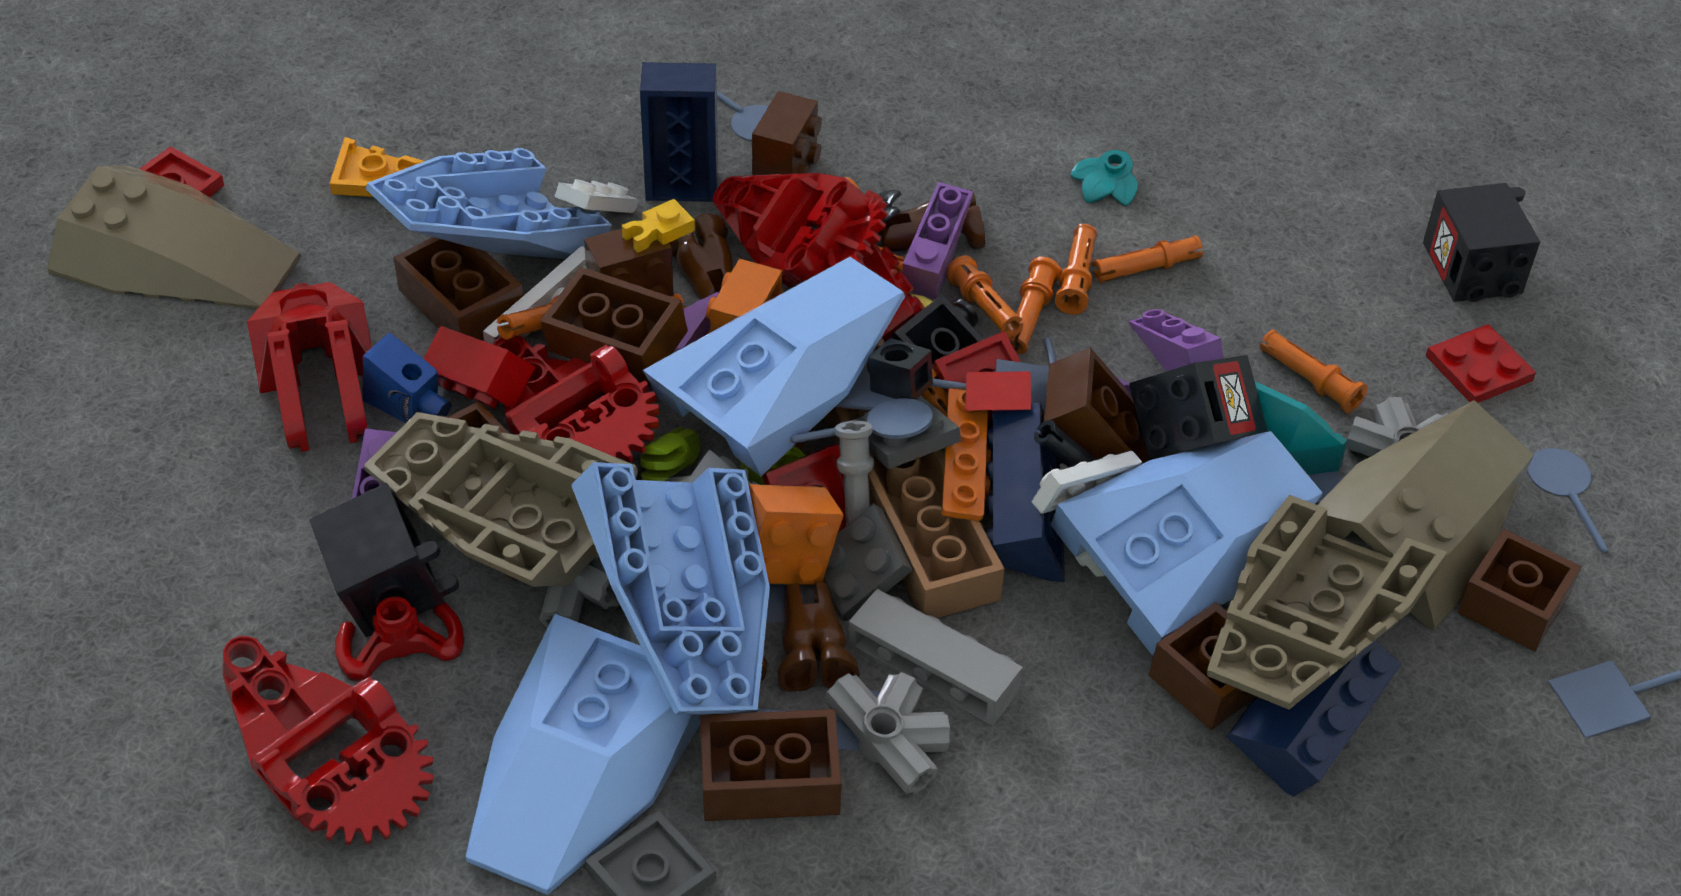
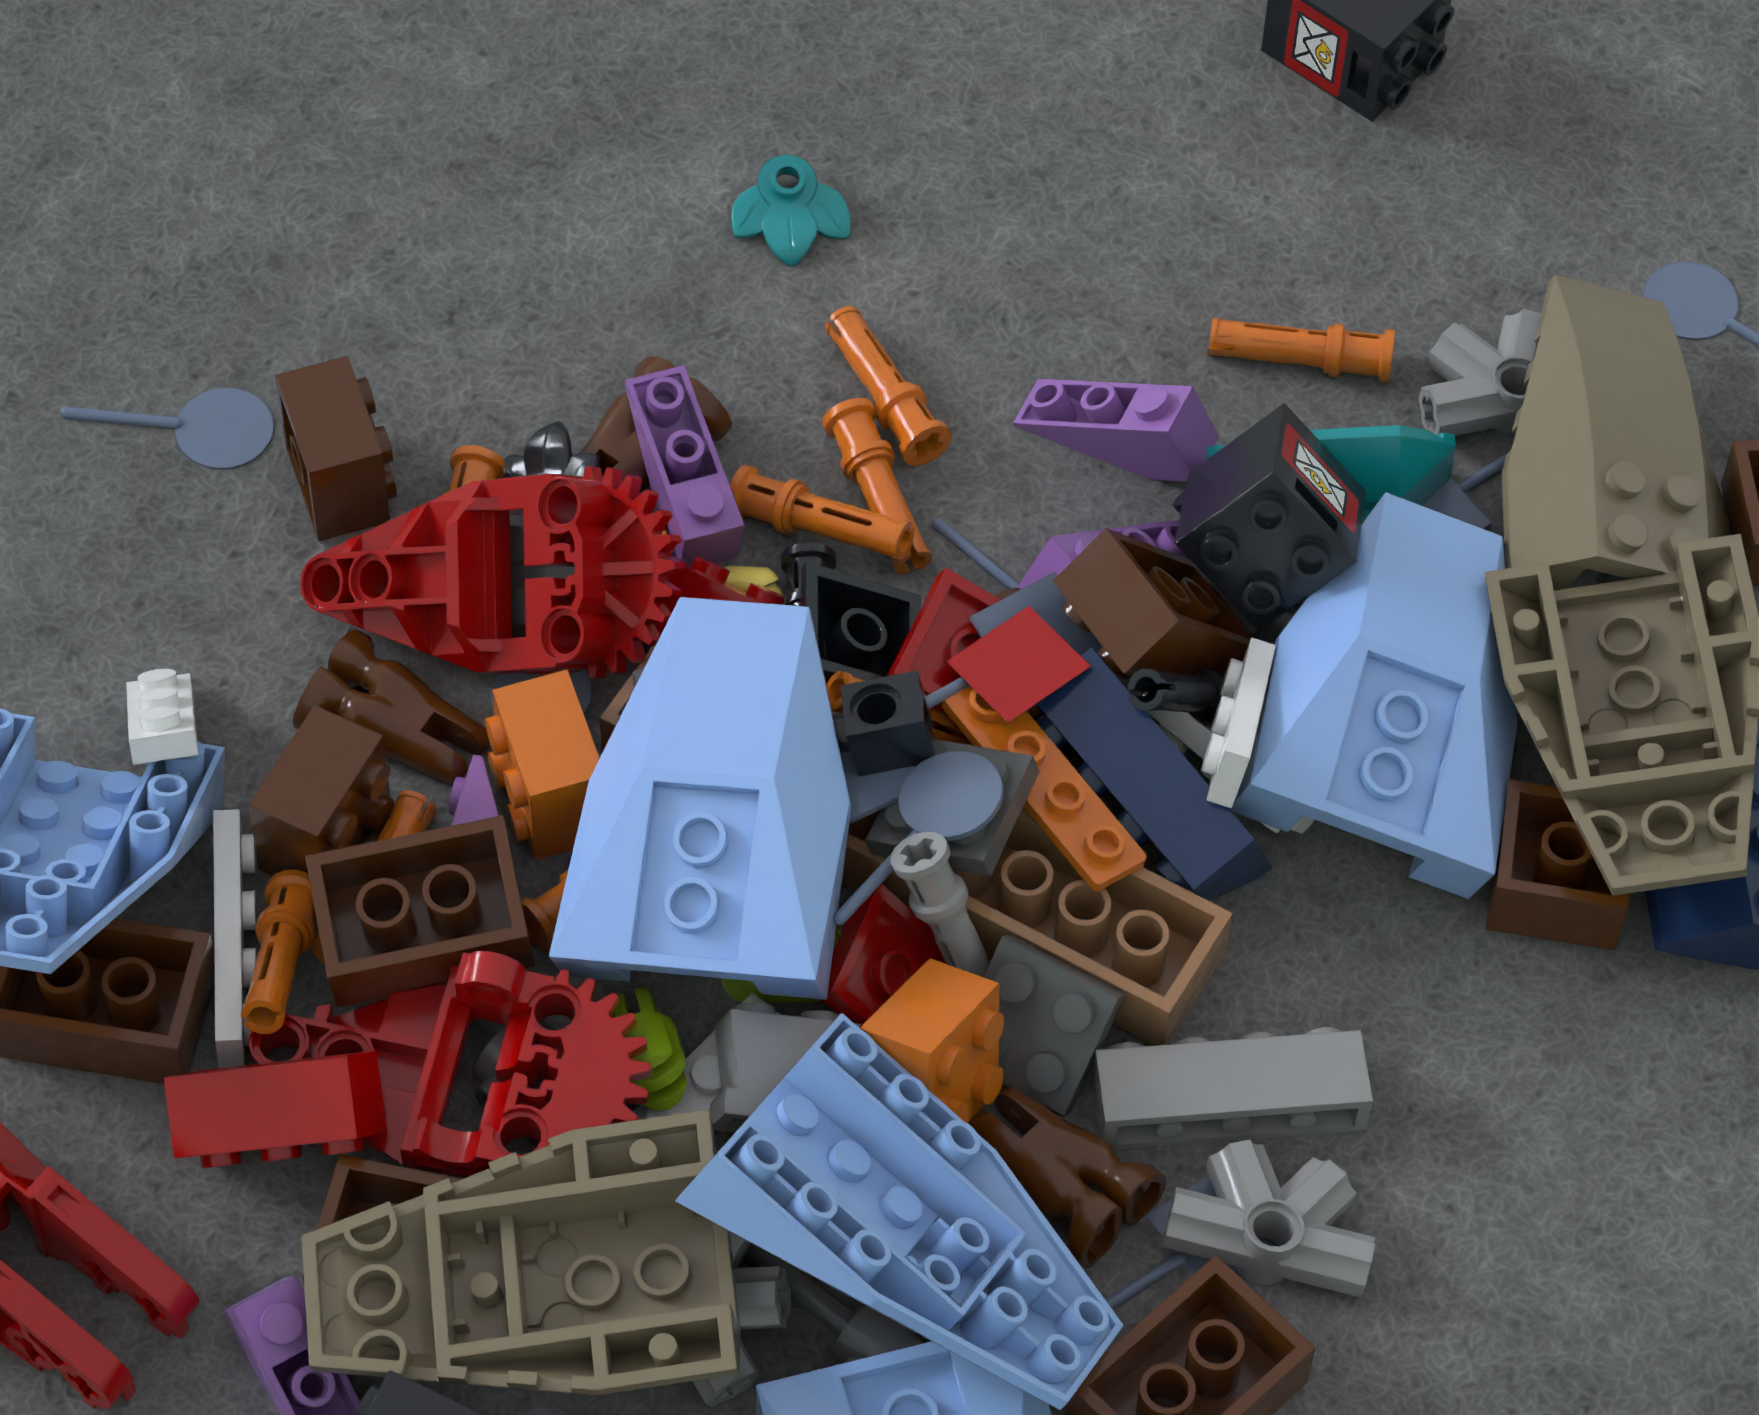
camera: 40 degrees left, 10 degrees up
(401, 381) = (187, 1198): blue torso -> none
(659, 223) = (340, 707): yellow plate -> none
(679, 131) = (208, 536): dark blue brick -> none
(1162, 255) = (971, 291): orange pin -> none
(1480, 364) = (1483, 200): red plate -> none

